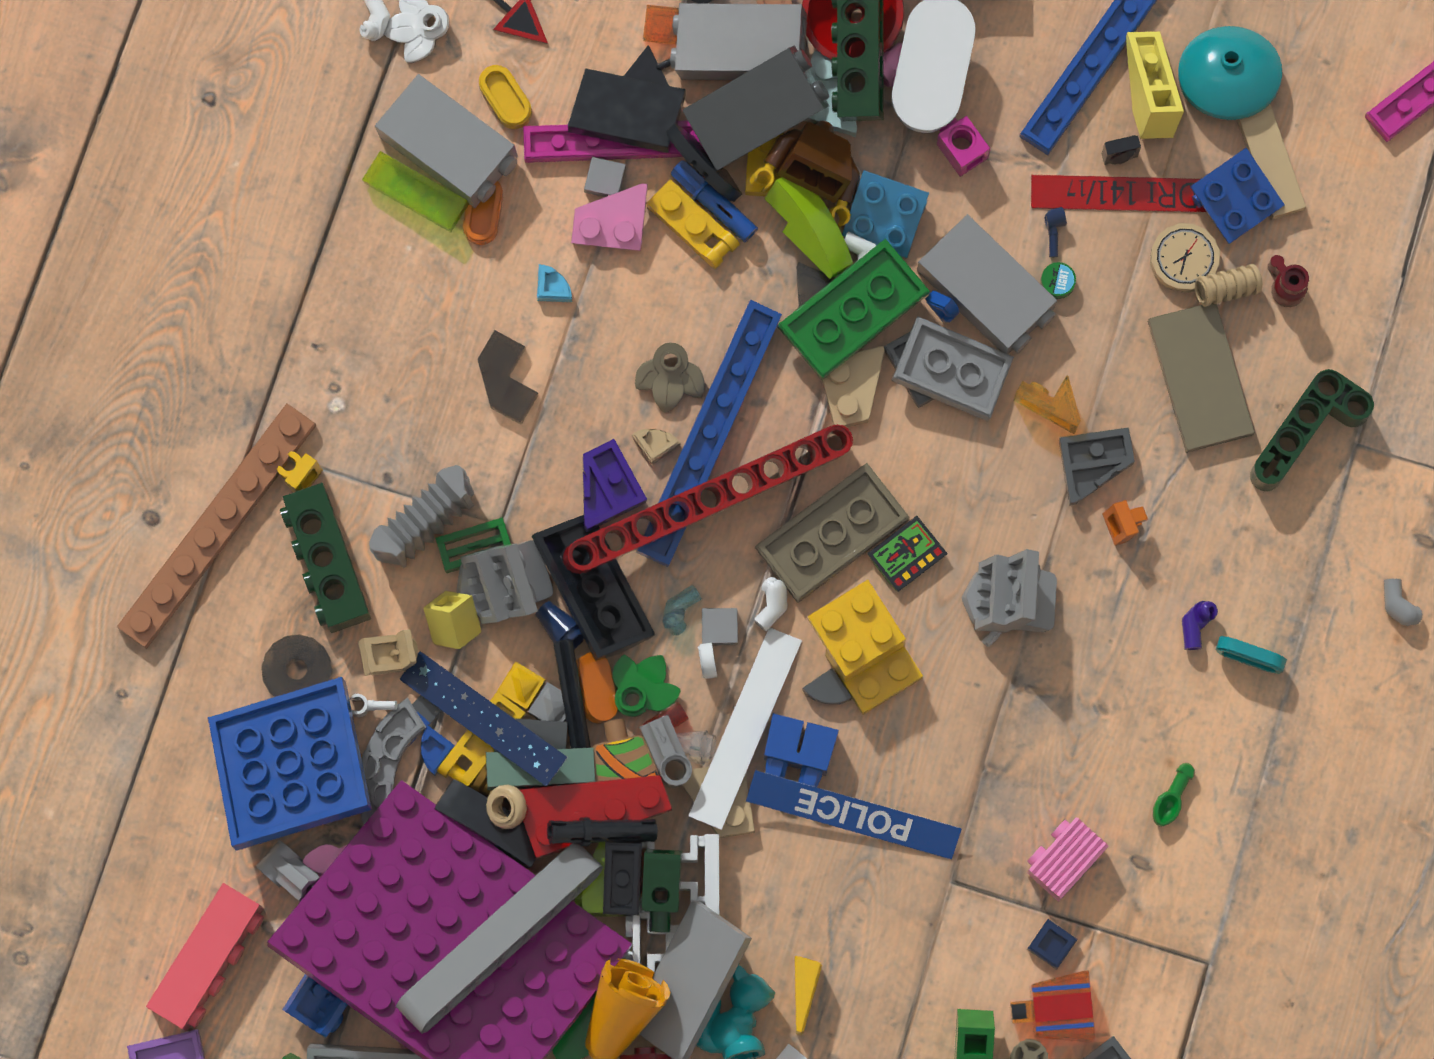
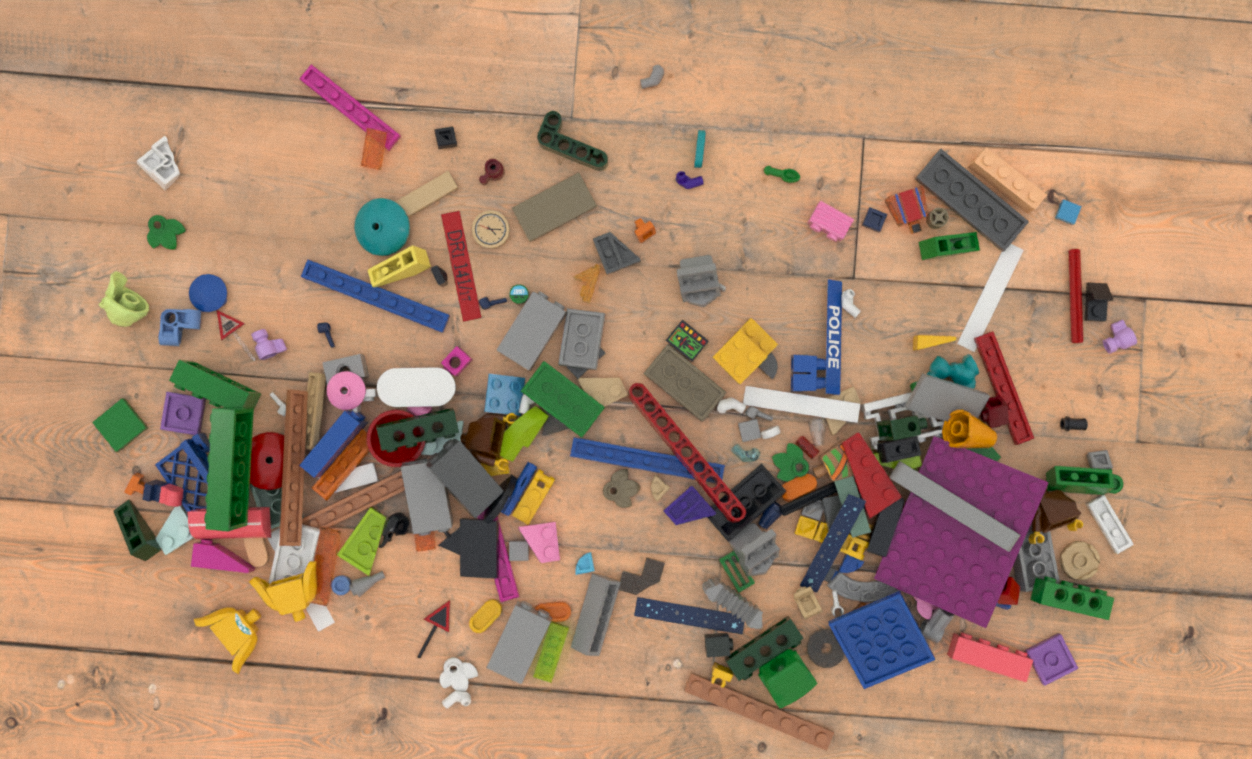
camera: 100 degrees left, 10 degrees up
(266, 581) = (787, 678): none -> green piece
(318, 1008) = (1010, 593): none -> red brick
(353, 479) = (718, 645): none -> pearl dark grey brick
(417, 440) = (688, 615): none -> dark blue sticker
(452, 619) = (780, 572): light yellow panel -> none
(460, 282) = (595, 615): none -> light grey brick
(517, 802) = (883, 523): tan piece -> none
(592, 831) = (885, 473): black pin -> none
(665, 747) = (826, 442): light grey piece -> none
(752, 640) = (752, 412): none -> light grey hand
(909, 857) = (847, 303): none -> white arm
(943, 306) = (550, 350): blue tile -> none
(1228, 285) = (502, 202): tan piece -> none
(1236, 195) = (451, 208): blue hinge -> none
(1366, 216) = (445, 137): none -> black tile
(1372, 88) = (373, 148): none -> clear orange tile

